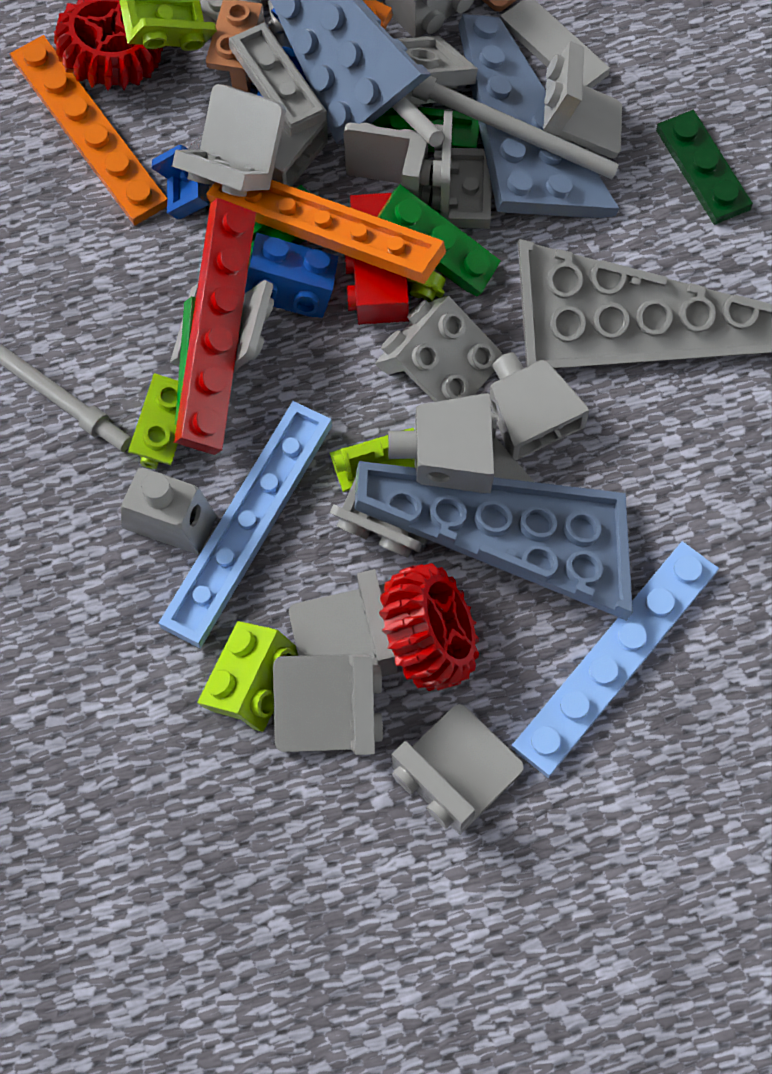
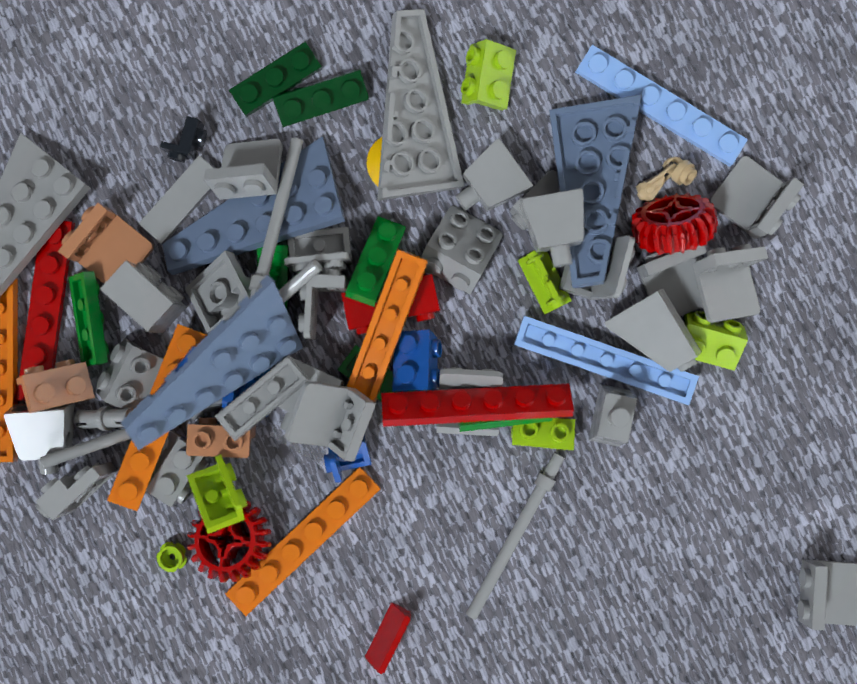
camera: 105 degrees left, 20 degrees up
(272, 584) = (657, 332): none -> light grey slope
(509, 667) = (682, 173): none -> tan piece
(628, 56) = (191, 138): none -> black bracket
(672, 213) = (320, 97): none -> dark green plate
(684, 424) = (488, 74): none -> lime bracket

